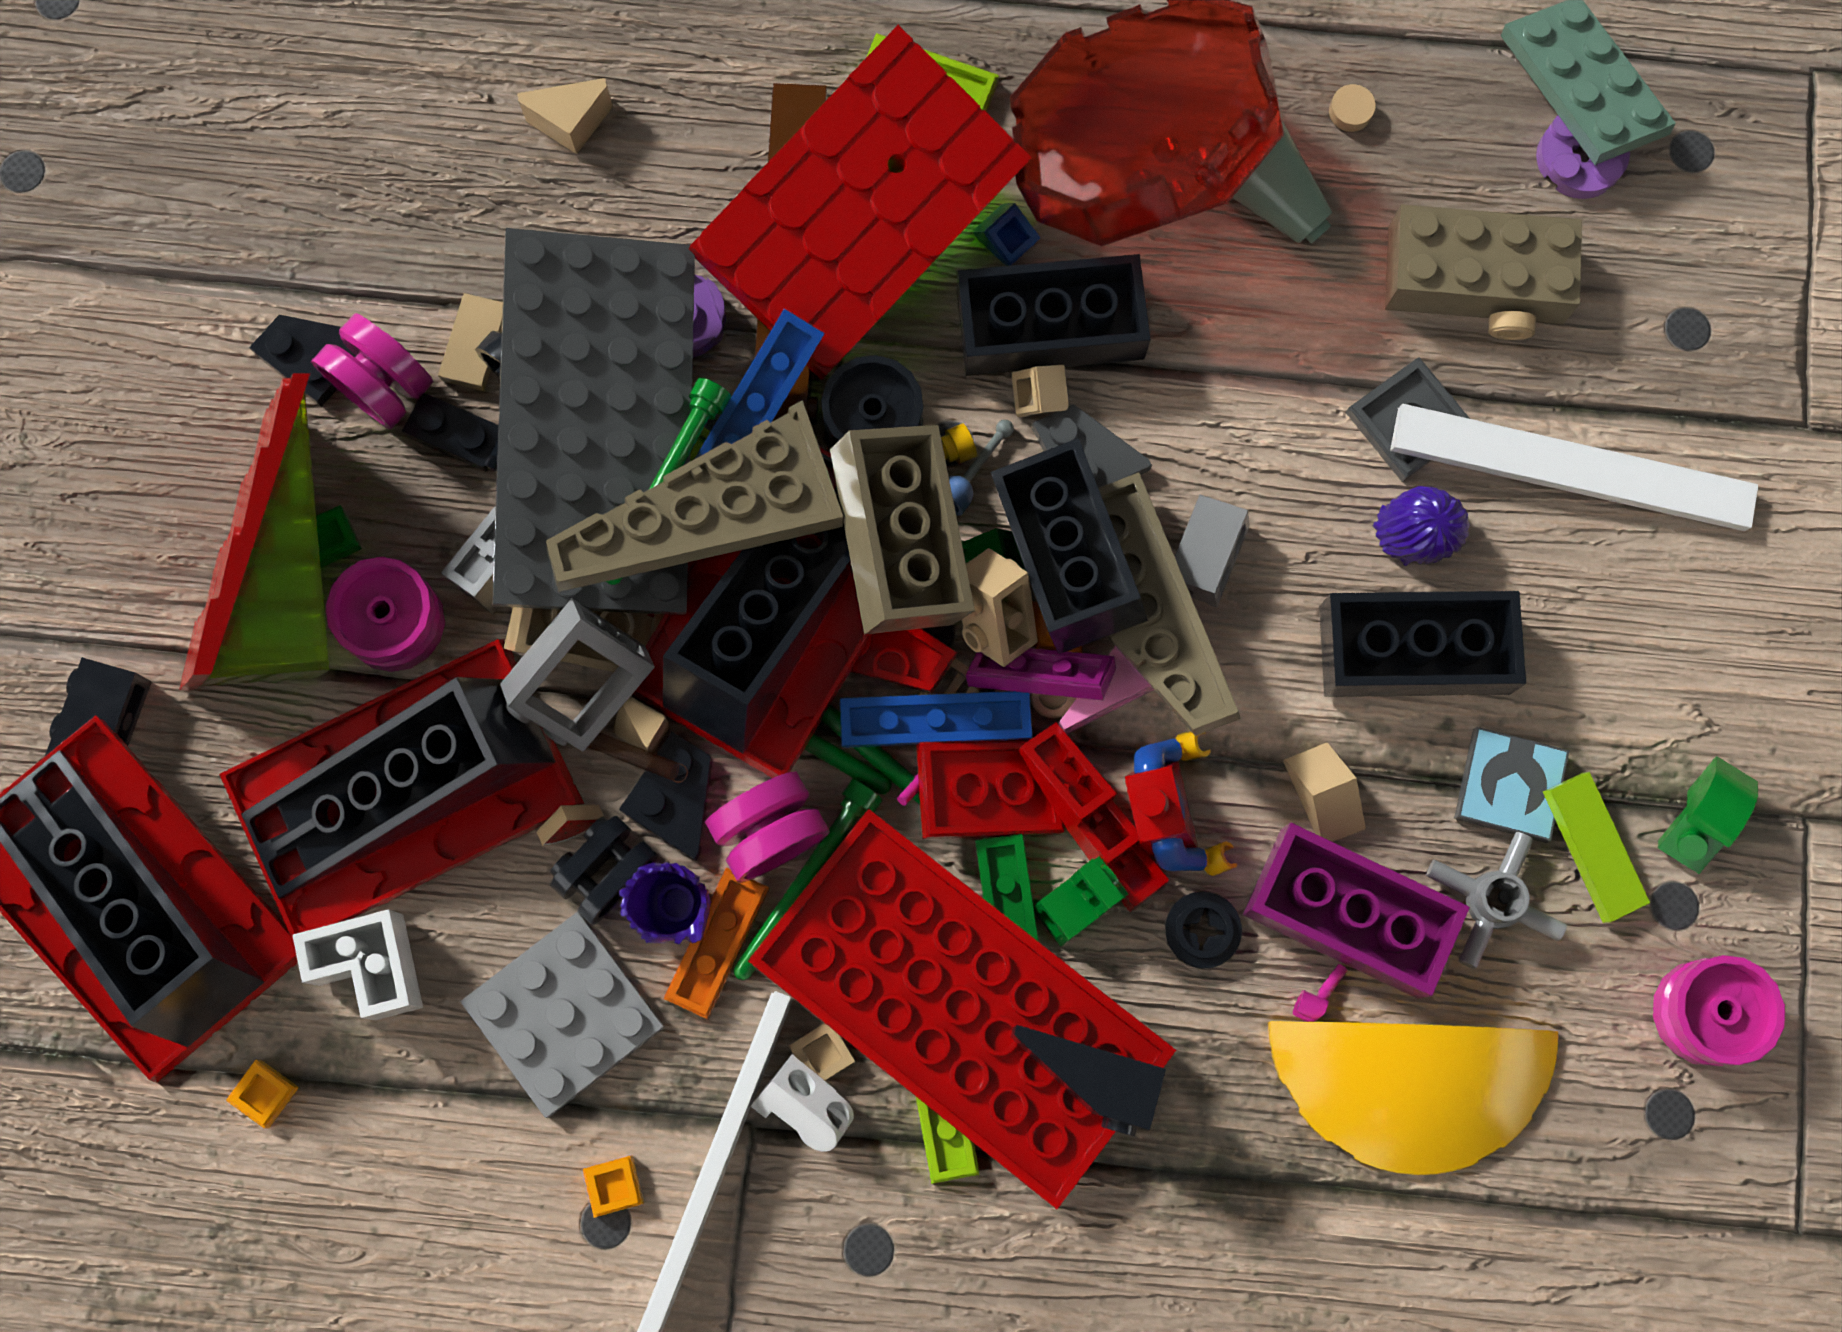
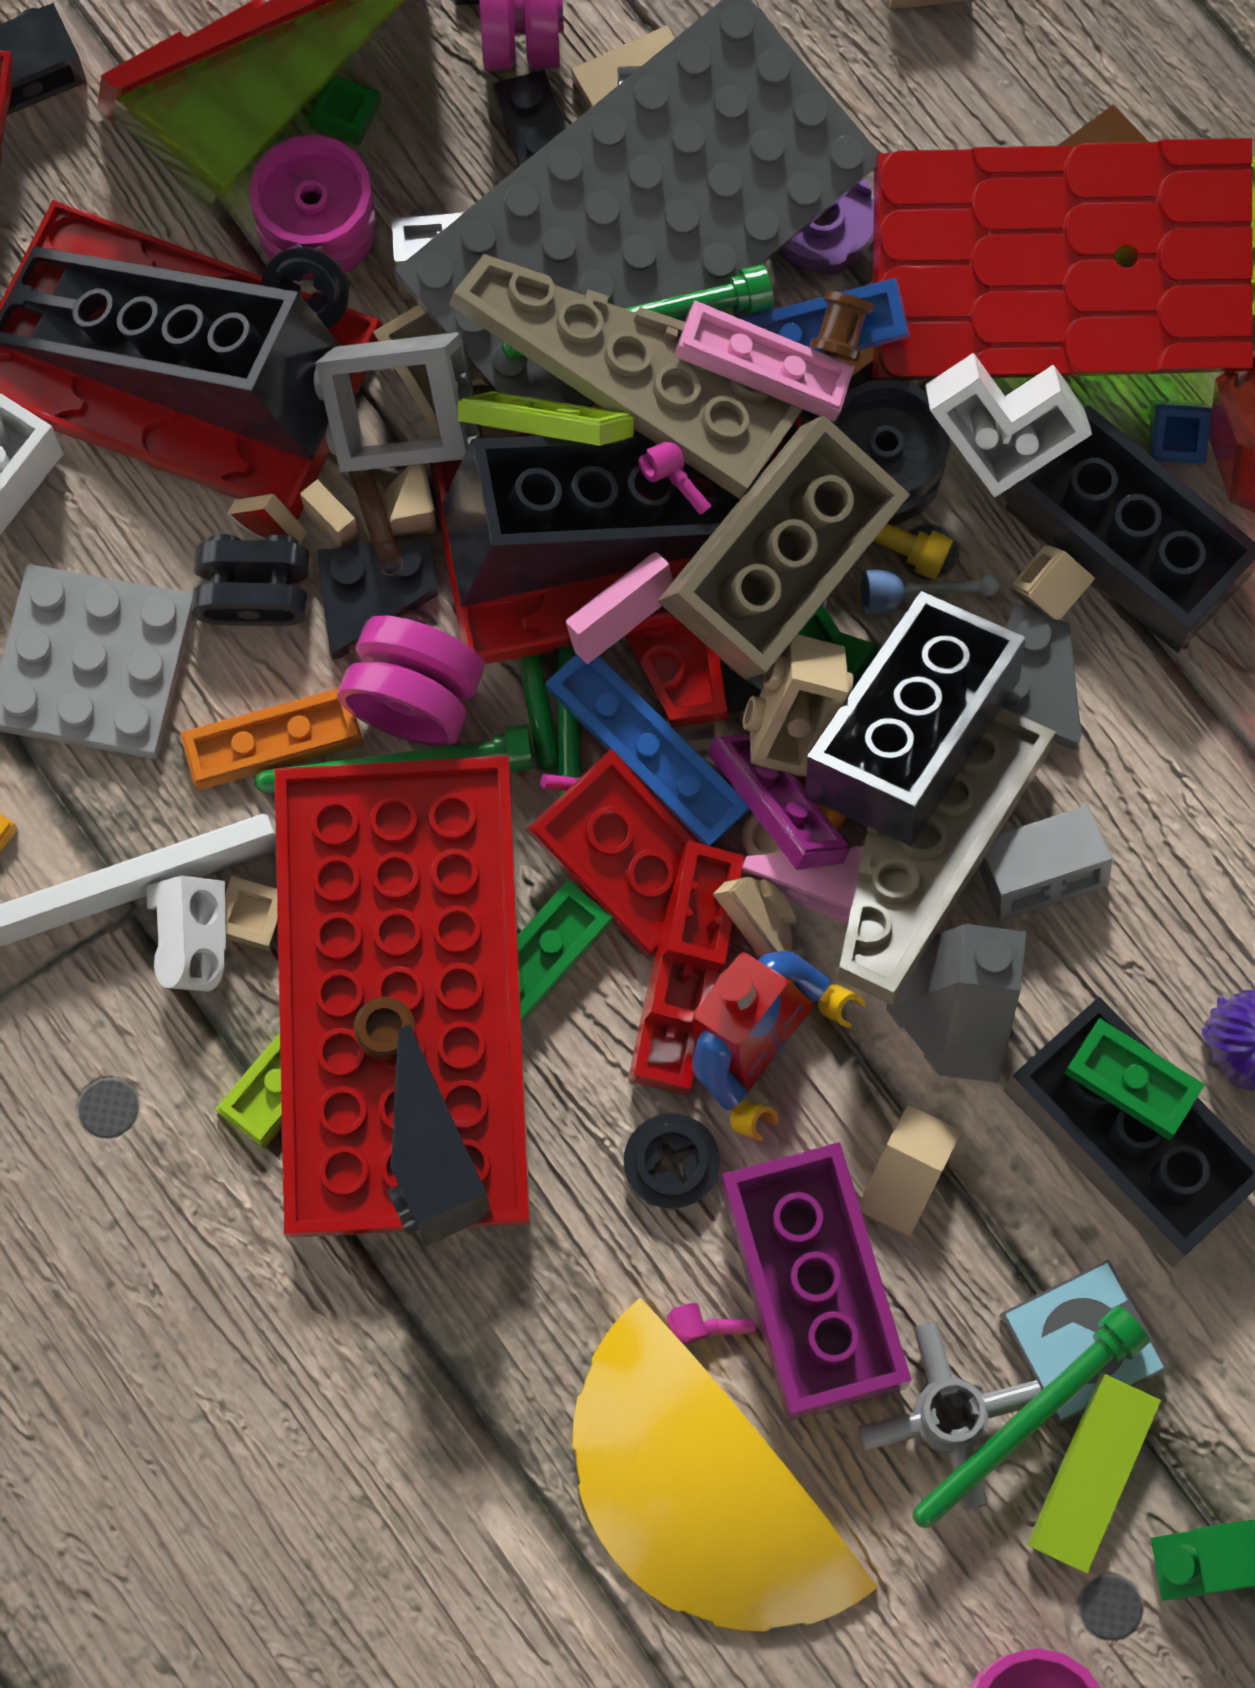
camera: 50 degrees right, 5 degrees down
(455, 650) = (329, 279): none -> black gear
(604, 782) = (329, 515): none -> tan tile
(666, 903) = (264, 654): dark purple hair -> none
(683, 597) = (546, 418): none -> lime tile
(765, 433) = (764, 361): none -> bright pink tile
(782, 549) = (668, 461): none -> dark pink hand
(786, 367) = (842, 325): none -> reddish brown bush
(841, 658) = (619, 608): none -> bright pink tile
(938, 329) = (1009, 433): none -> white brick
(981, 1036) = (378, 1027): none -> reddish brown tile
(1080, 900) = (596, 1019): green brick -> none
(1100, 745) = (759, 913): none -> tan tile
(1266, 668) = (964, 1000): none -> dark grey slope
(1403, 618) = (1134, 1079): none -> green plate
(1534, 767) = (1117, 1338): none -> green piece

